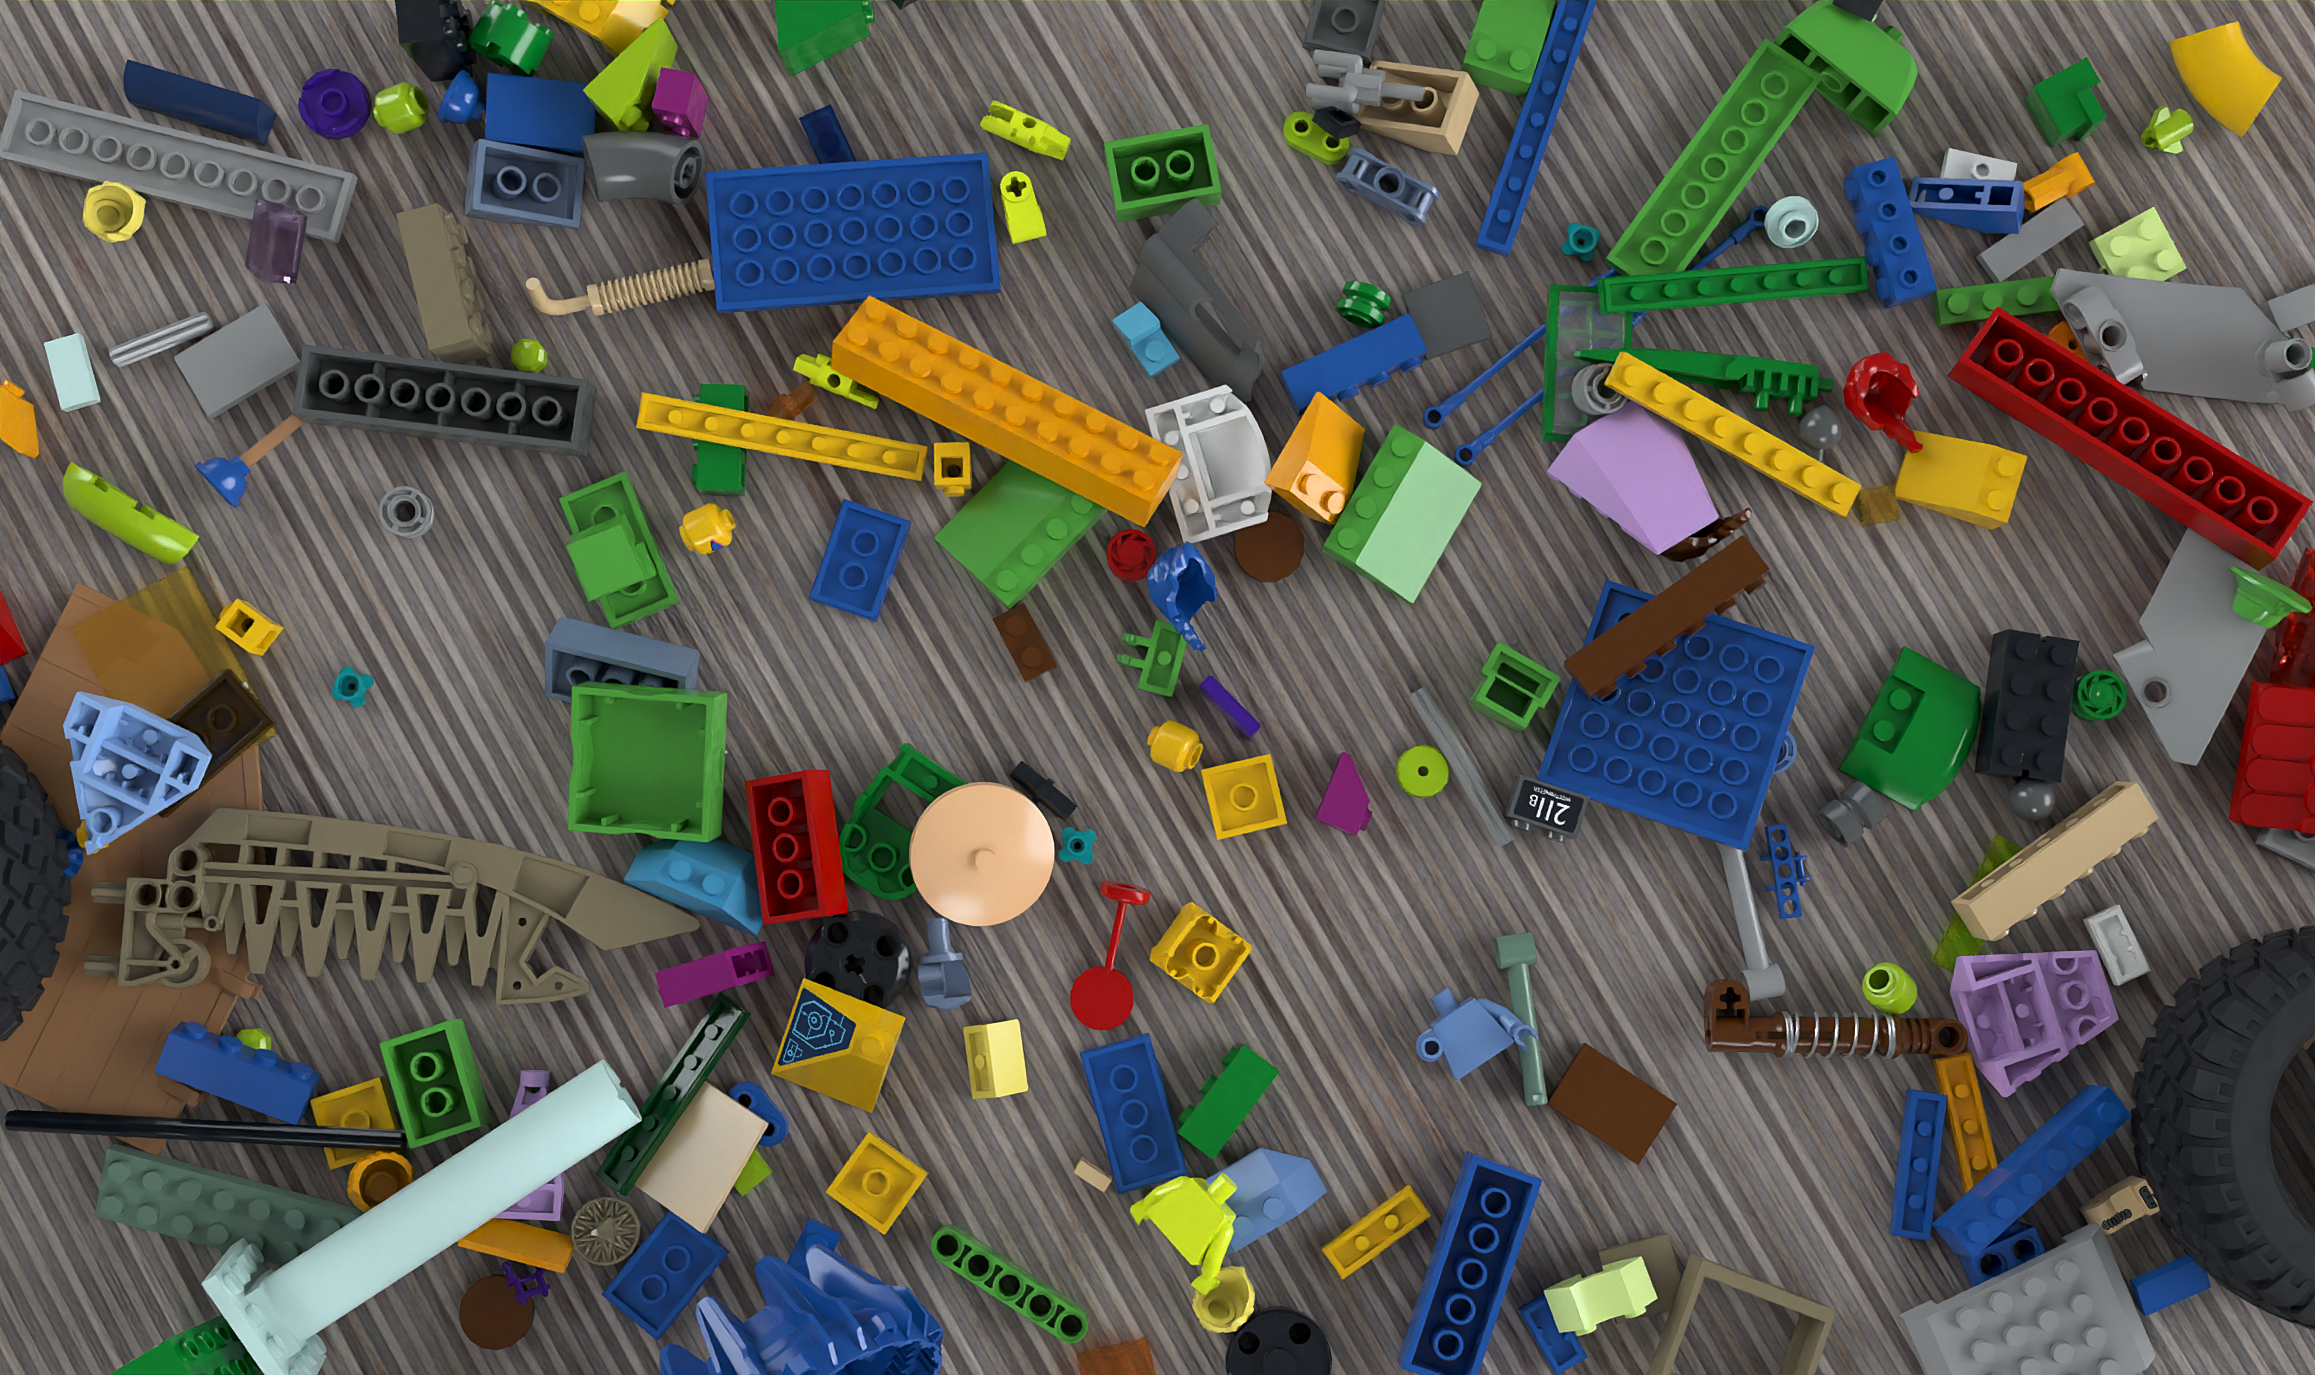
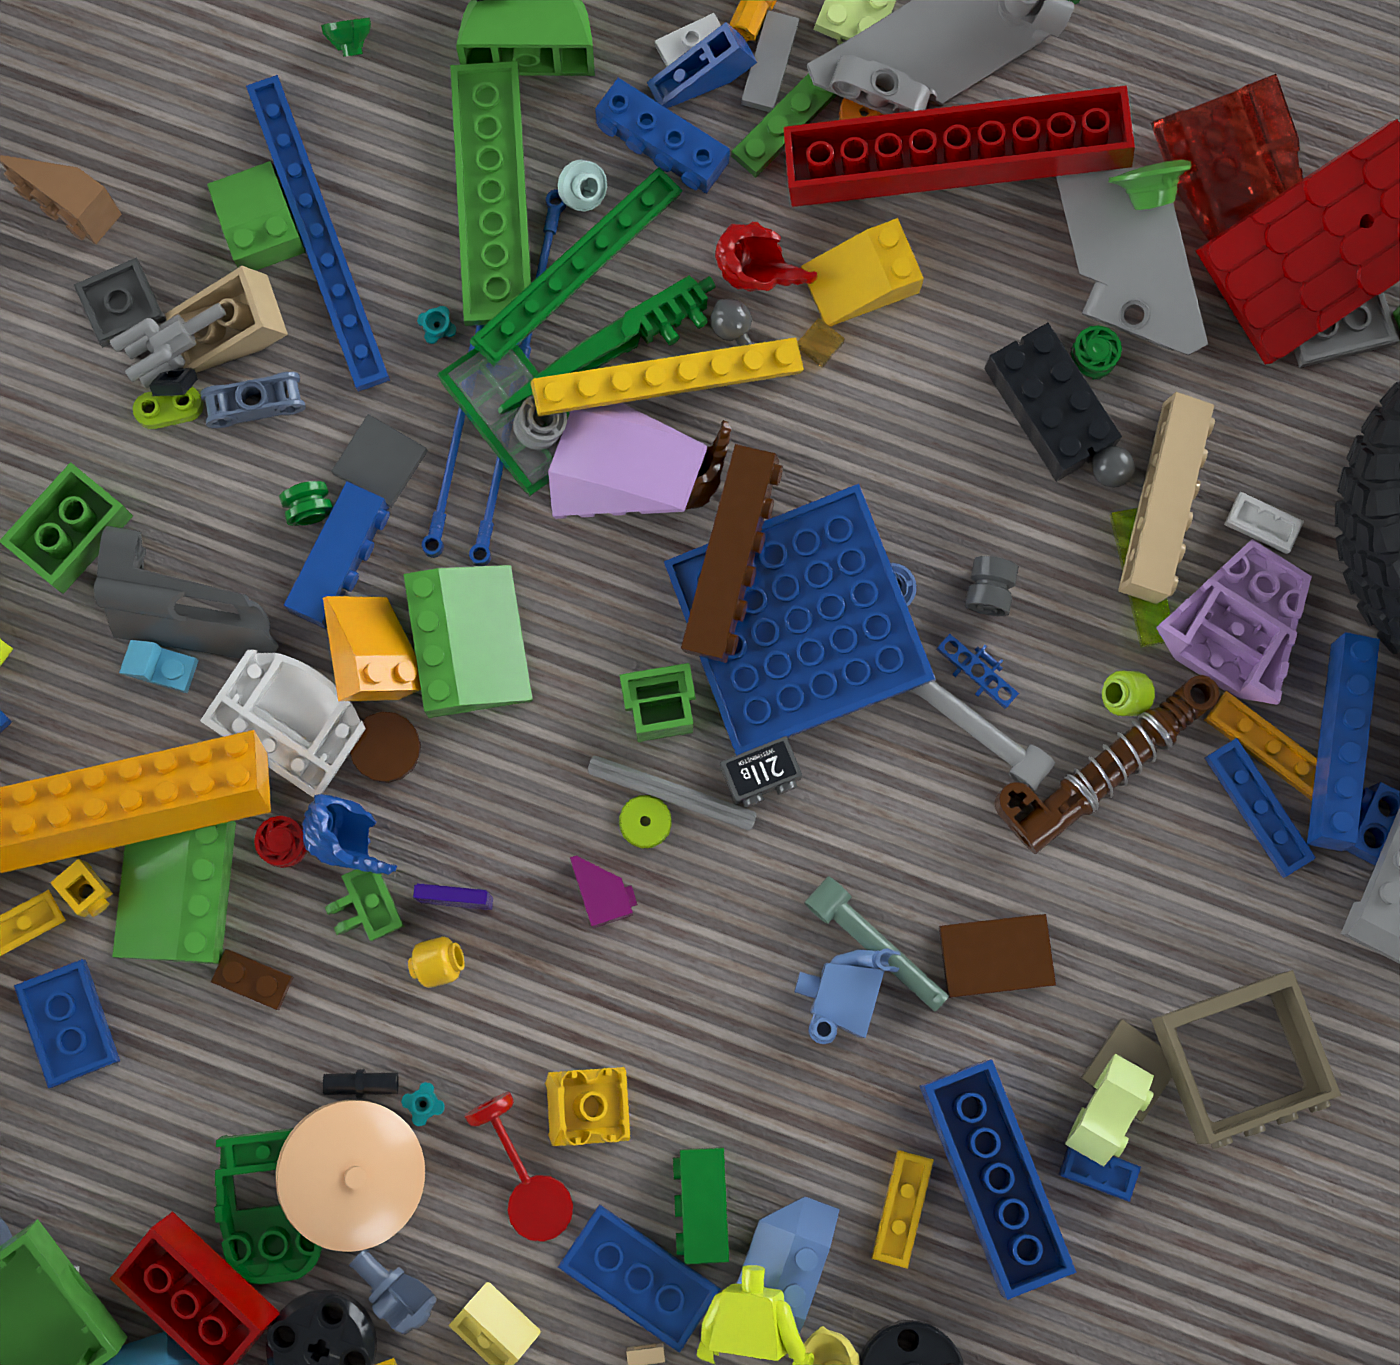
camera: 40 degrees left, 5 degrees down
(1243, 796) = (522, 956): yellow plate -> none
(1915, 732) = (988, 487): green slope -> none

